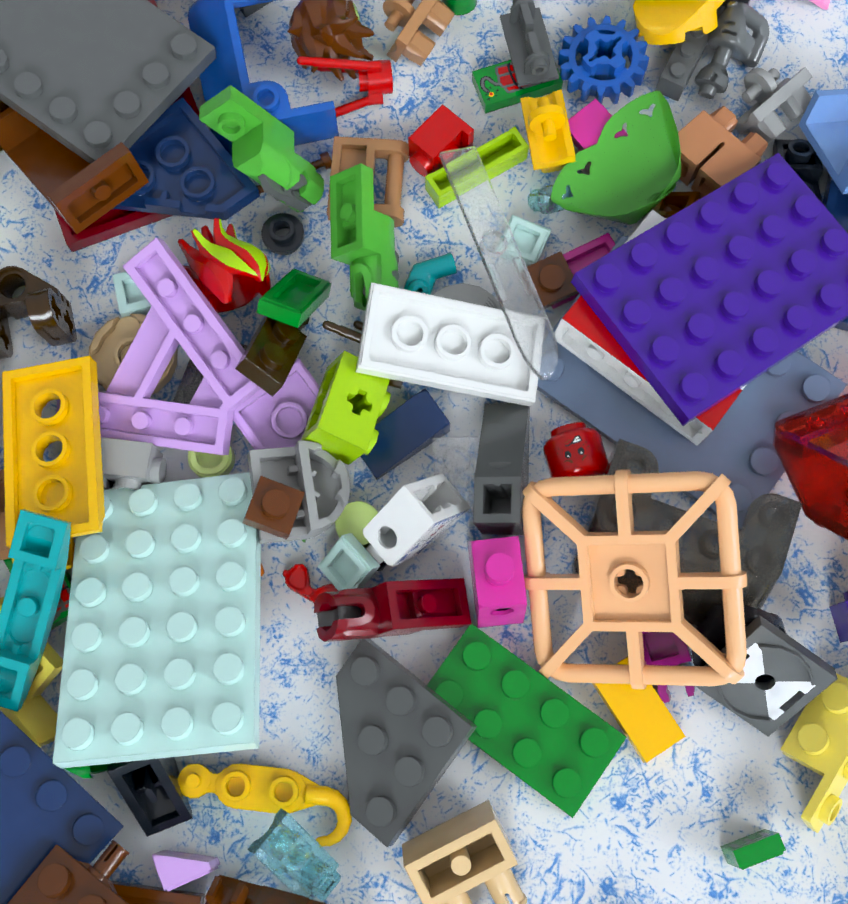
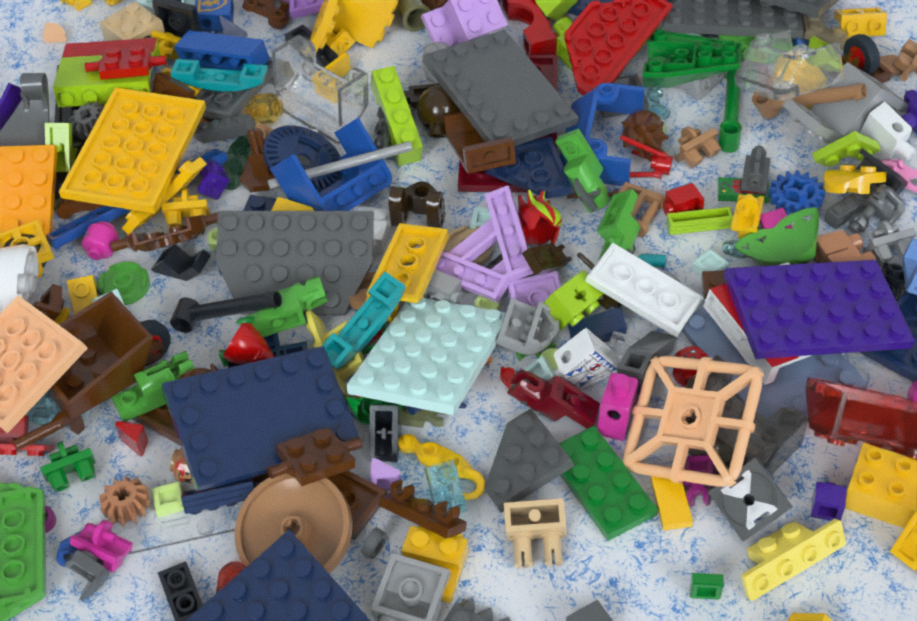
camera: 25 degrees right, 25 degrees down
(273, 507) = (511, 325): reddish brown plate -> none
(282, 244) = (575, 218): black plate -> none
(294, 298) = (568, 243): green tile -> none
(502, 260) = (691, 261): clear piece -> none

